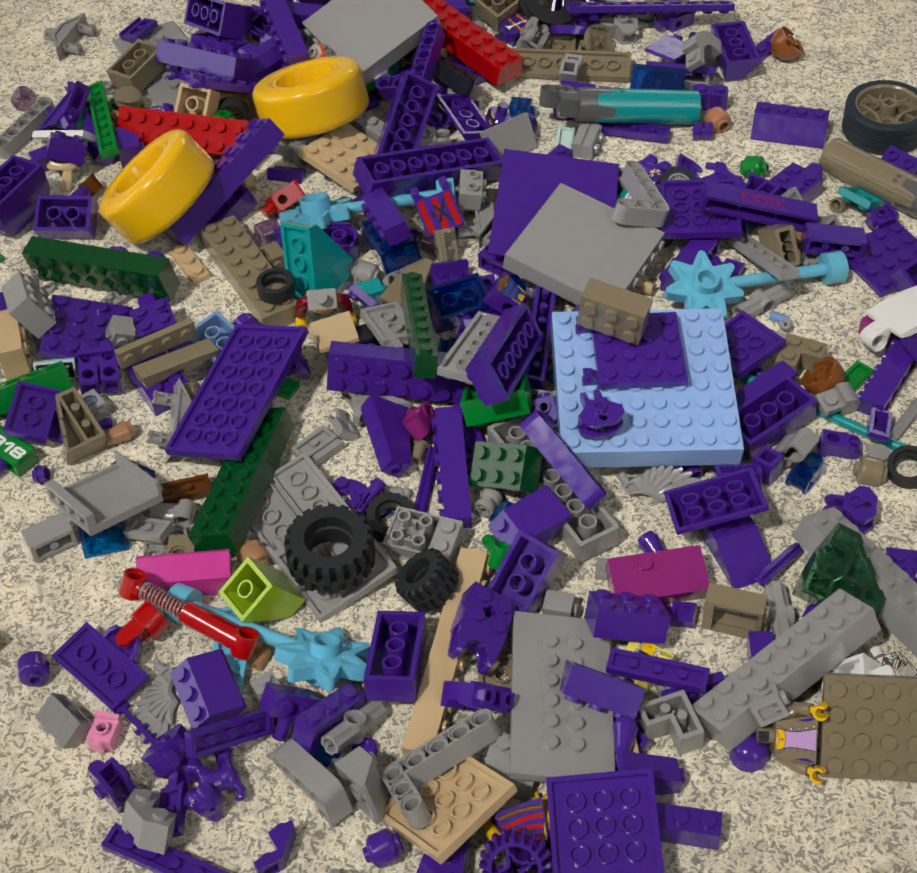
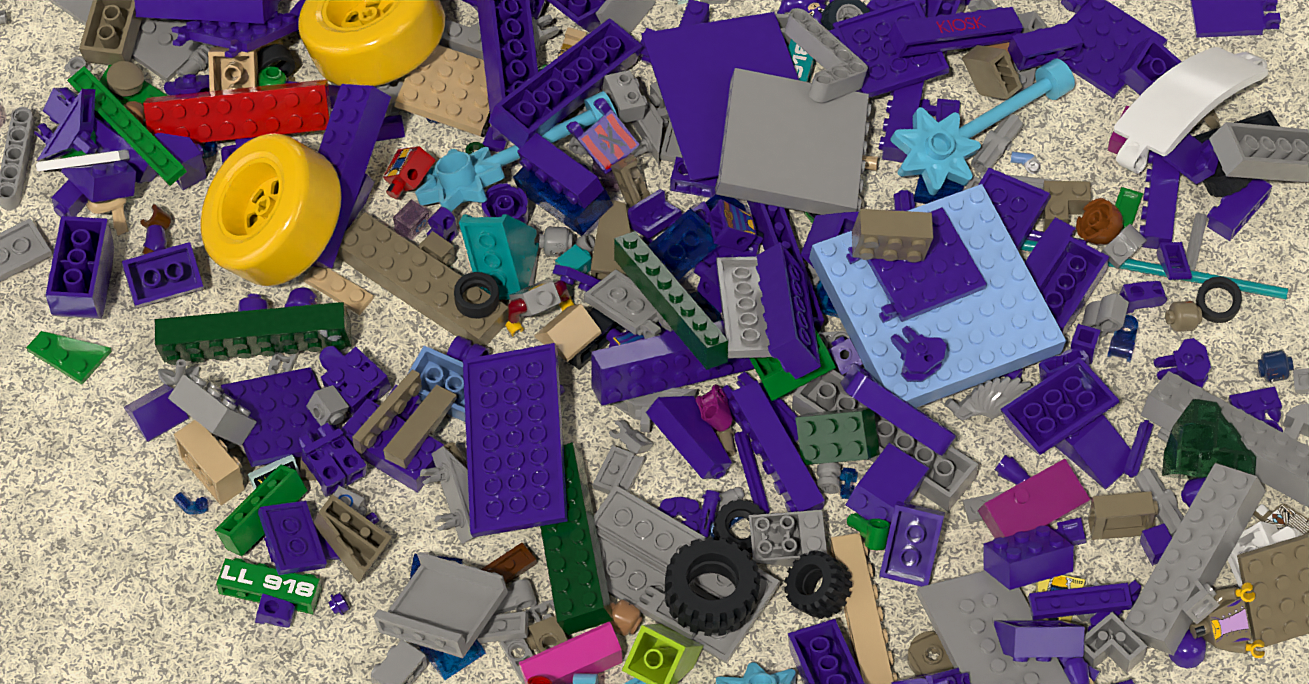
camera: 25 degrees left, 10 degrees up
(119, 433) = (397, 525): medium nougat cone -> none
(481, 625) = (895, 615): dark purple brick -> none
(560, 604) = (952, 564): light grey brick -> none
(764, 257) = (986, 92): light grey plate -> none
(879, 451) = (1182, 291): light grey tile -> none

